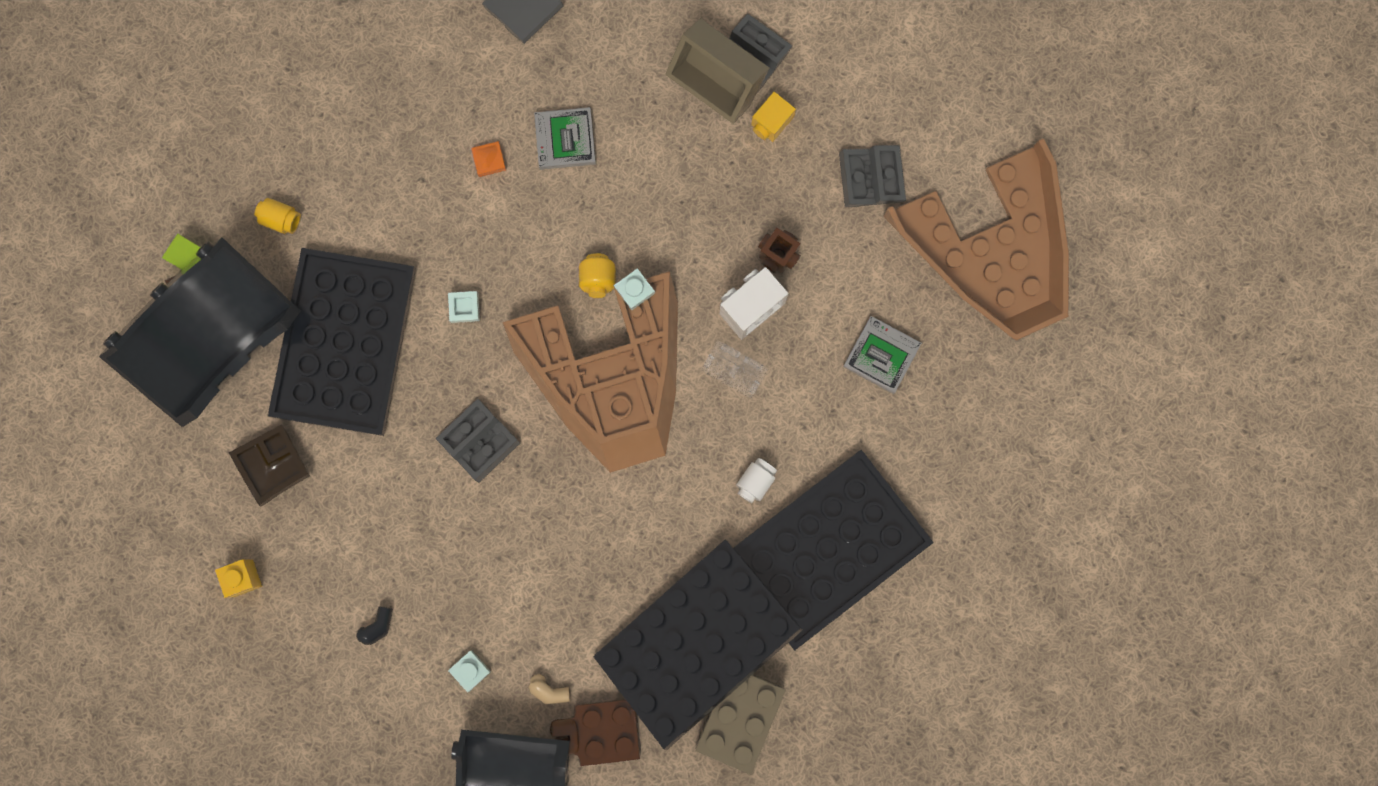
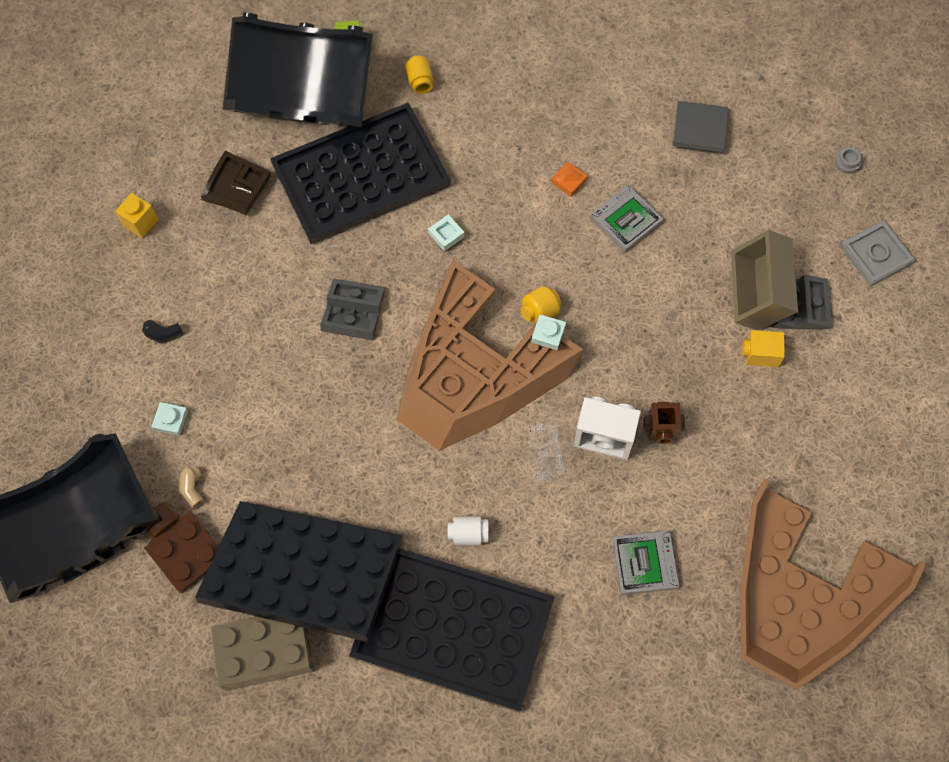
camera: 55 degrees right, 15 degrees down
(872, 176) = (782, 456): dark grey slope -> none

